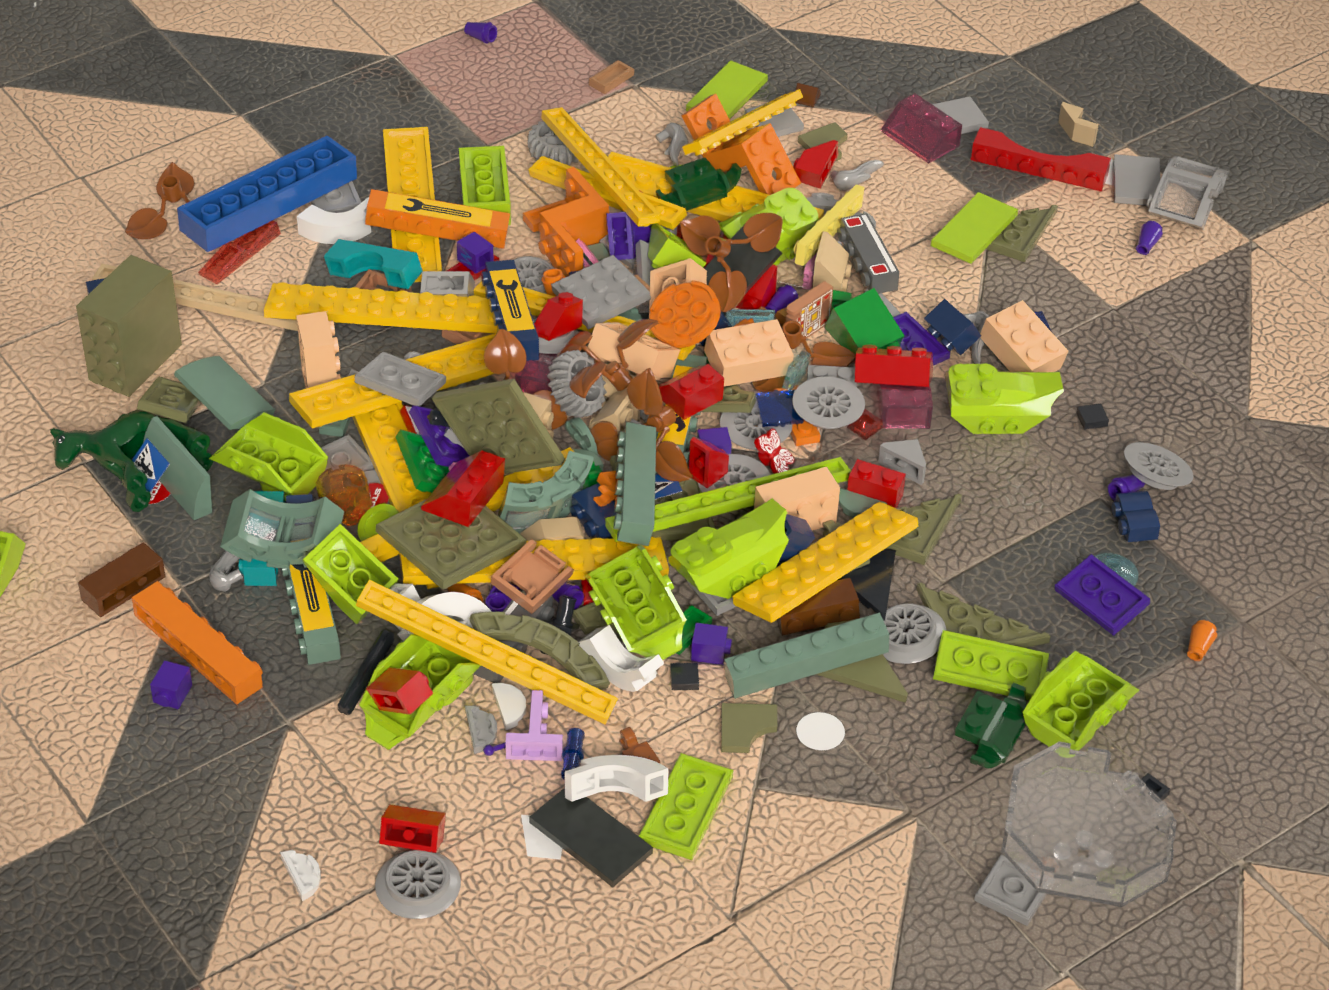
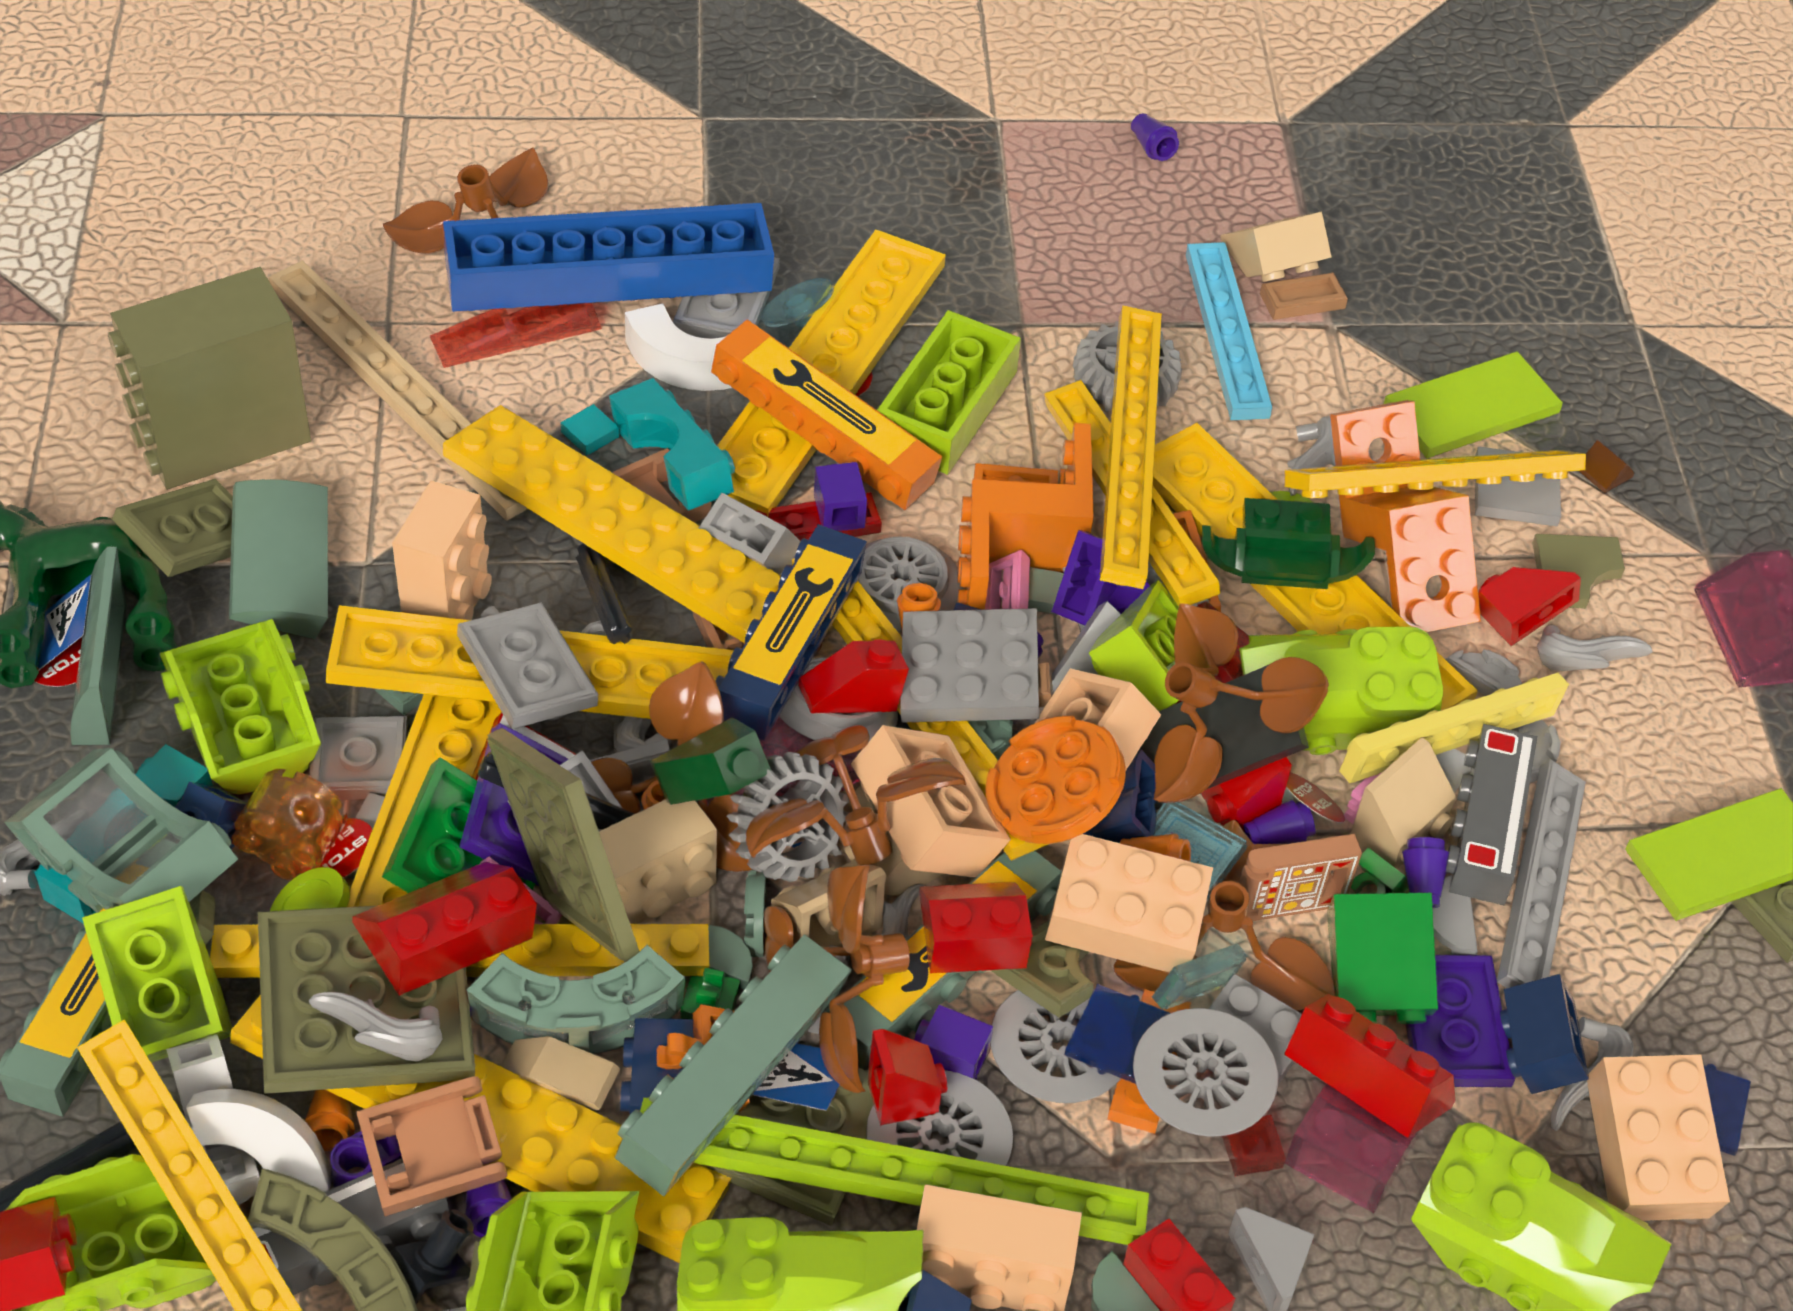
camera: 30 degrees right, 5 degrees up
(320, 277) = (589, 429): none -> teal tile
(374, 177) = (797, 303): none -> clear light blue dish
(400, 340) = (604, 595): none -> black axle
(491, 536) = (400, 1037): none -> light grey piece
(536, 368) = (711, 764): none -> dark green slope
(584, 57) = (1279, 246): none -> tan slope
(590, 106) = (1228, 332): none -> medium azure plate
(772, 453) = (1044, 1119): red animal -> none
(856, 283) = (1426, 866): none -> dark purple cone
(908, 277) = (1542, 877): none -> light grey tile

